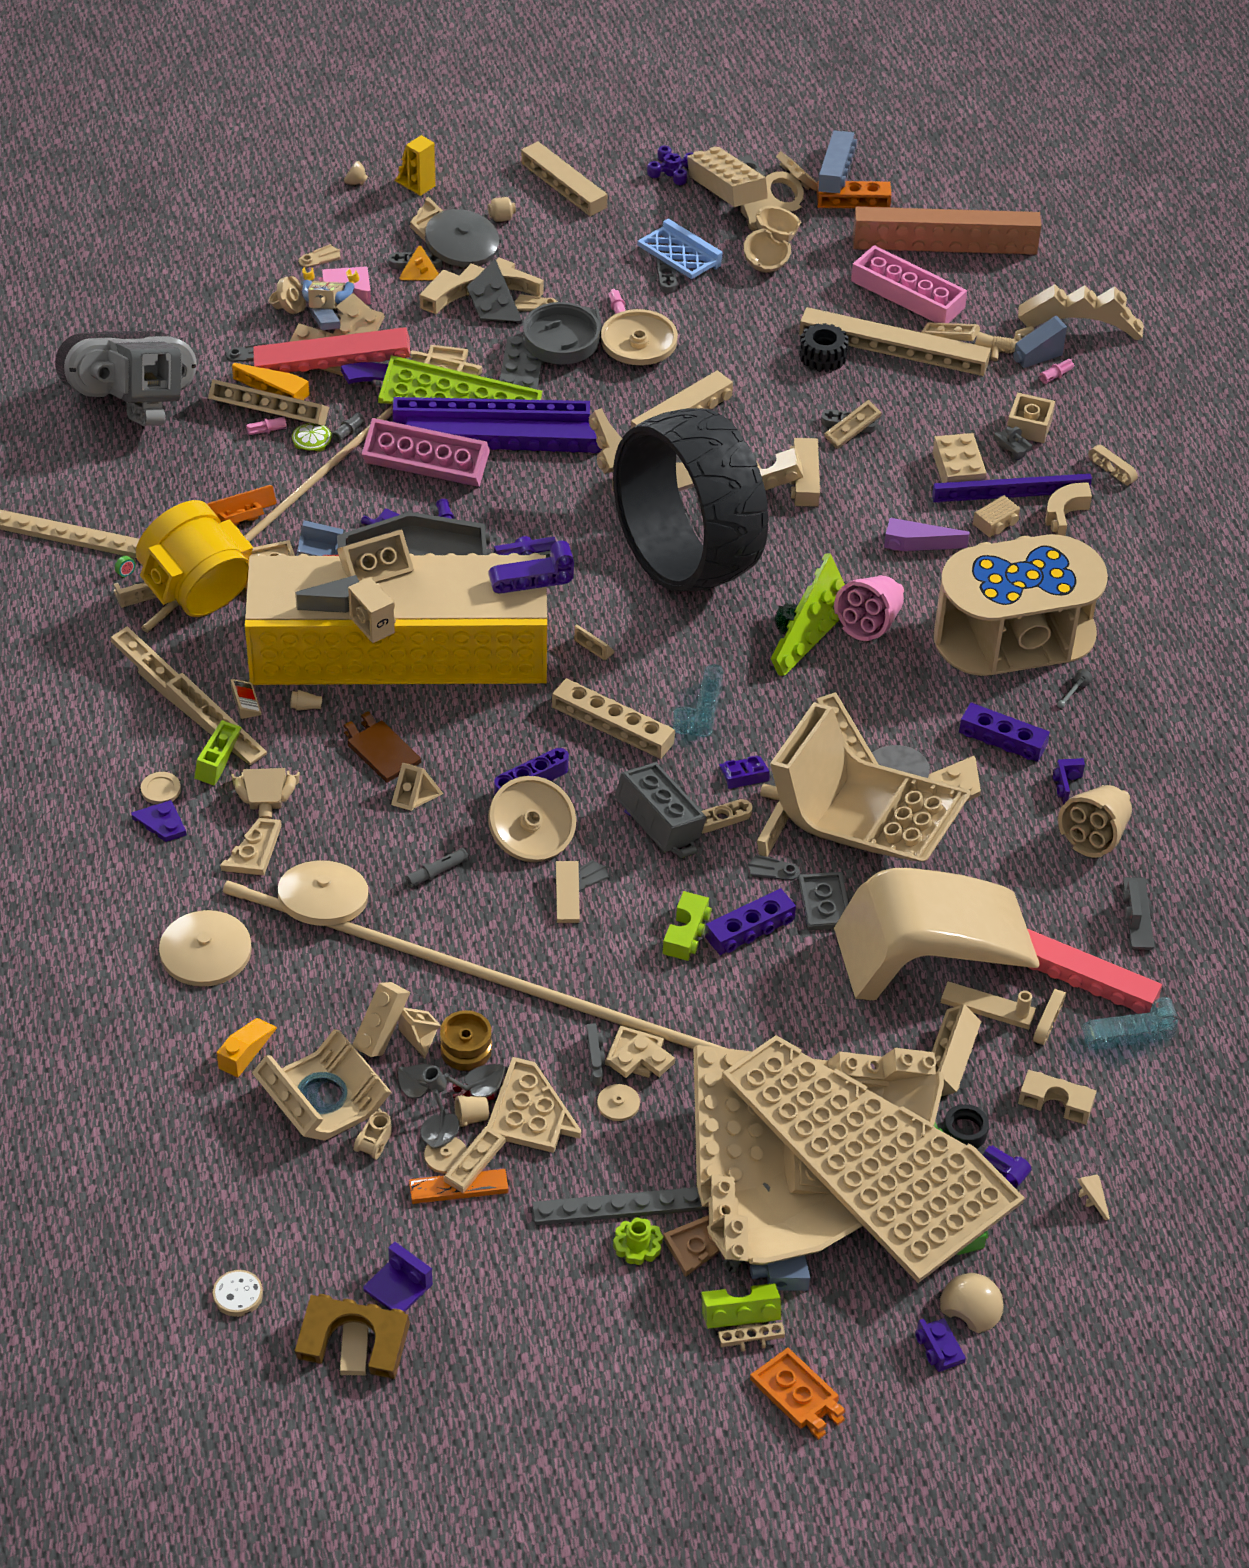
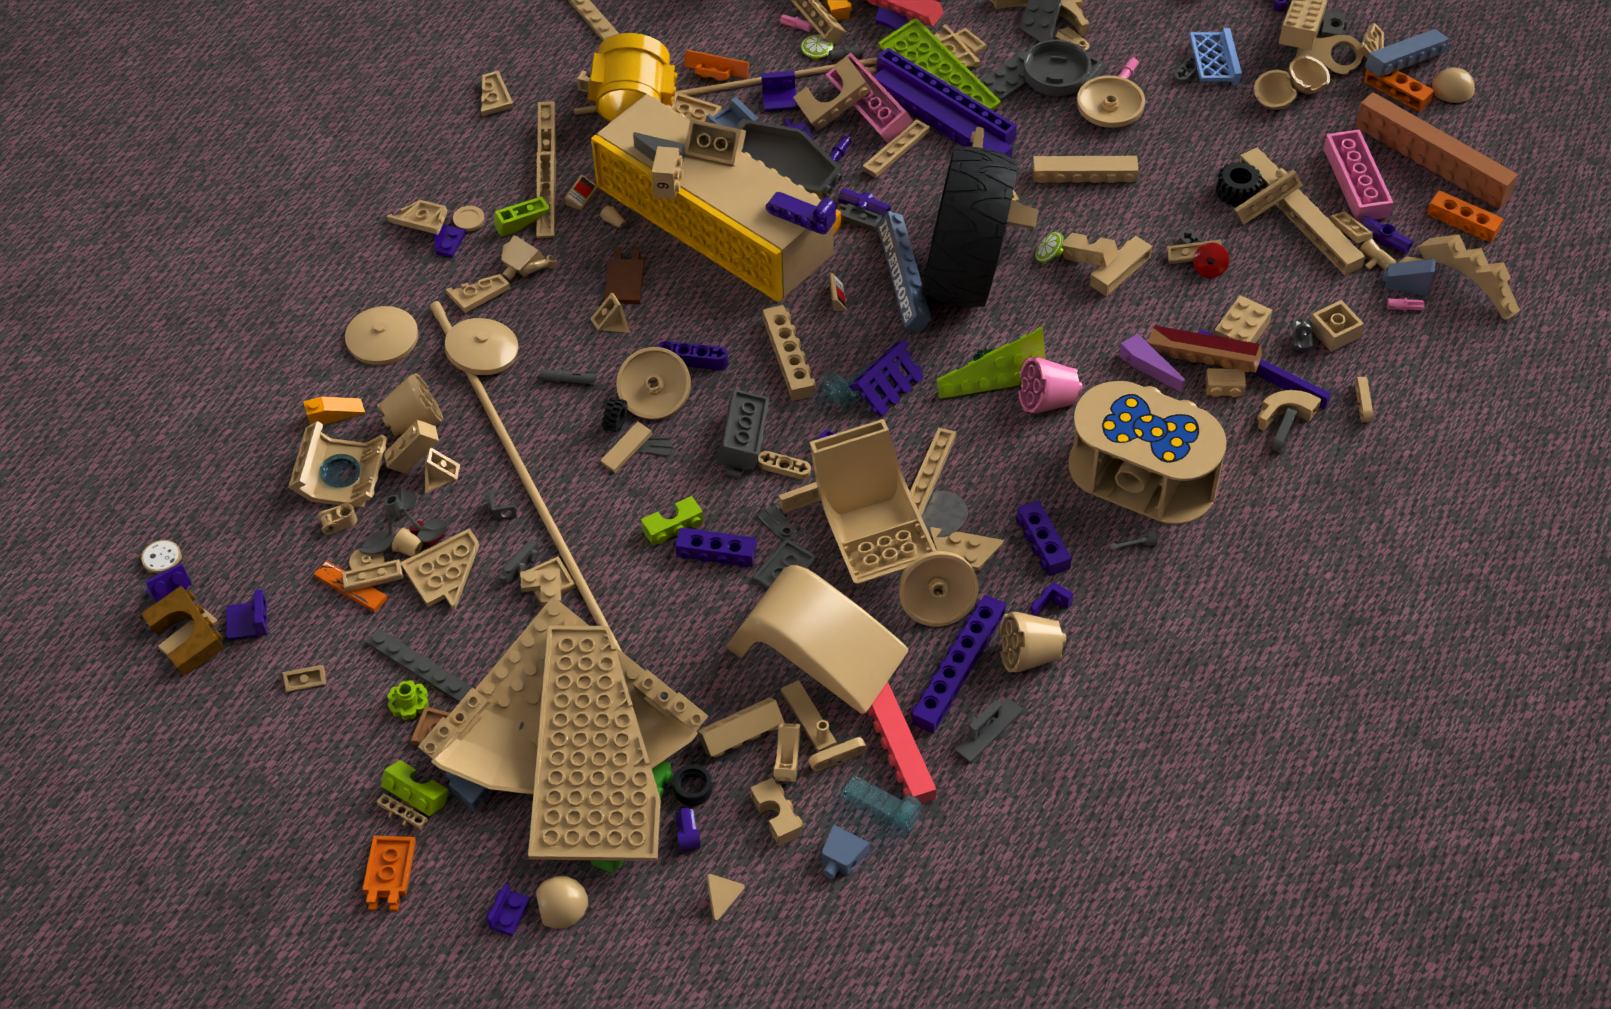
camera: 45 degrees right, 5 degrees up
(43, 659) = (494, 94): none -> tan wing
(113, 814) = (421, 216): none -> tan wing
(287, 1307) = (166, 582): none -> dark purple bracket
(327, 497) = (779, 90): none -> dark purple bracket
(332, 986) = (409, 403): none -> tan cone
(394, 493) = (824, 112): none -> tan arch
(466, 1040) = (452, 497): pearl gold wheel -> none
(496, 486) = (896, 148): none -> tan plate
(511, 1024) = (497, 510): none -> dark grey bracket
(516, 1294) = (304, 678): none -> tan slope
(528, 869) = (614, 414): none -> black tyre
(618, 1102) = (502, 604): tan piece -> none
(637, 586) = (904, 272): none -> sand blue brick
(728, 681) = (879, 379): none -> dark purple fence
(867, 422) = (1214, 251): none -> red dish
(871, 326) = (1269, 196): none -> tan piece
(896, 169) = (1453, 85): none -> tan cylinder
(959, 495) = (1205, 348): none -> medium nougat brick
(985, 321) = (1387, 235): none -> dark purple piece
(987, 822) = (938, 588): none -> tan dish
(1011, 1045) = (787, 752): none -> tan arch
(1023, 273) = (1465, 216): none -> orange brick
(1057, 877) = (931, 718): none -> dark purple brick
(1083, 525) = (1284, 430): none -> dark grey beam
(1144, 1088) = (842, 852): none -> sand blue torso

